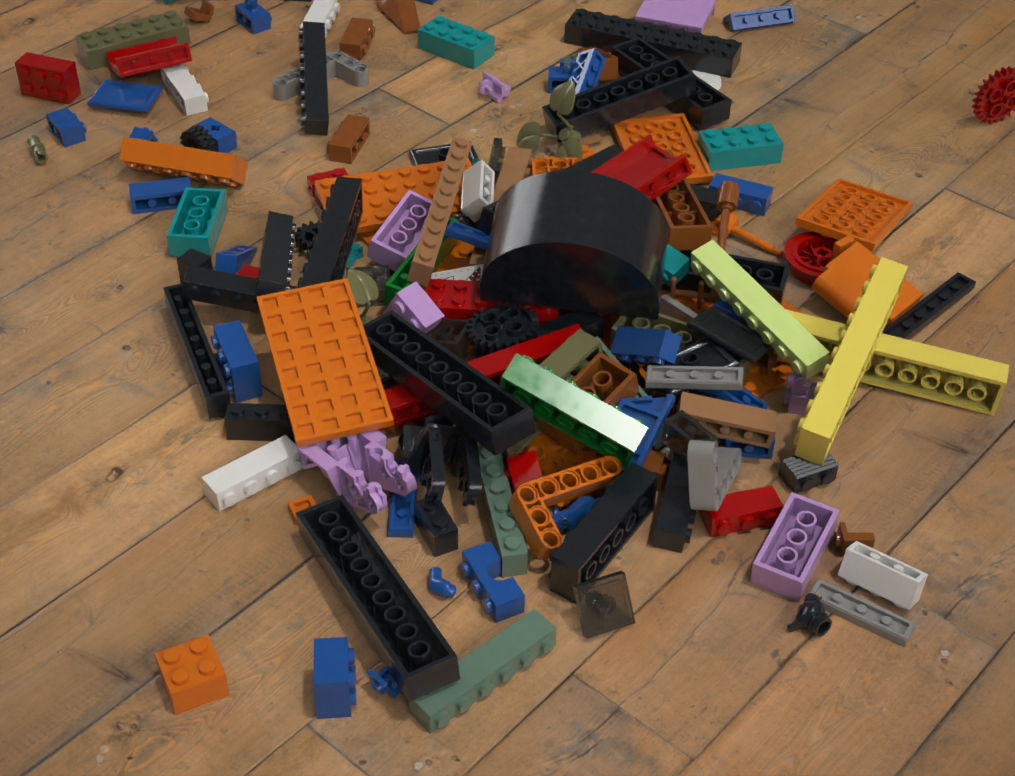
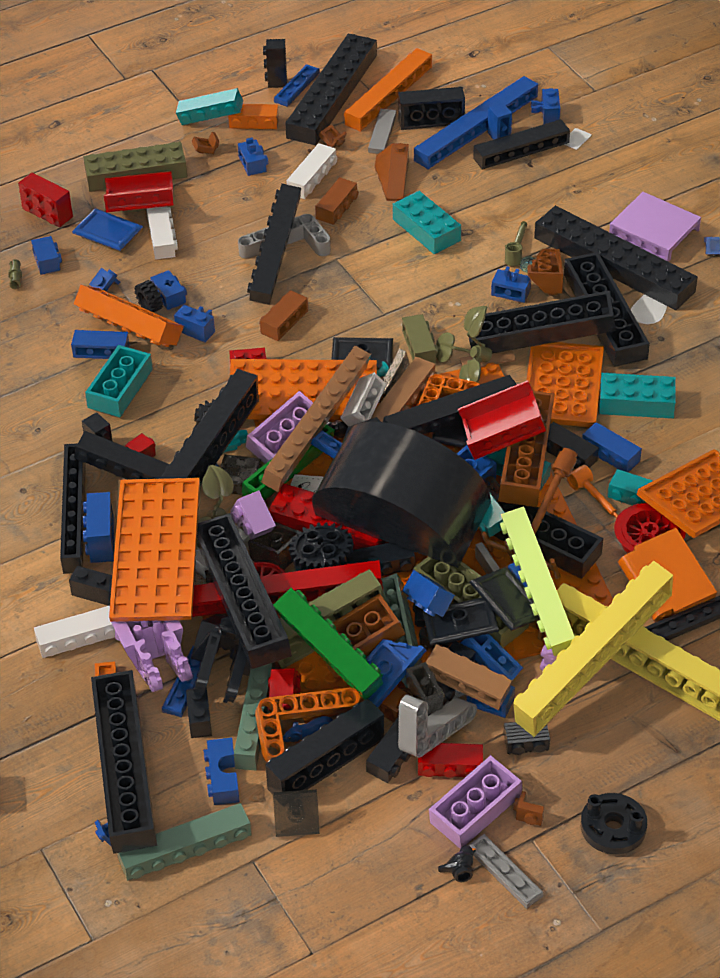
camera: 20 degrees right, 5 degrees up
(234, 258) = (135, 424): blue slope -> none
(261, 159) = (196, 322): none -> blue brick
(276, 254) = (165, 433): black brick -> none
(334, 677) = (67, 819): blue brick -> none
(440, 586) = (181, 762): blue arm -> none
(493, 87) = (438, 281): lavender hips -> none
(493, 127) = (418, 338): none -> olive brick
(554, 50) = (513, 250): none -> olive piece
(590, 68) = (529, 283): blue fence -> none
(695, 377) = (454, 633): light grey tile -> none
(777, 224) = (624, 487): none -> teal brick
(841, 245) = (663, 527): orange tile -> none
(882, 575) = (533, 844): white brick -> none
(953, 519) = (616, 808): none -> black piece

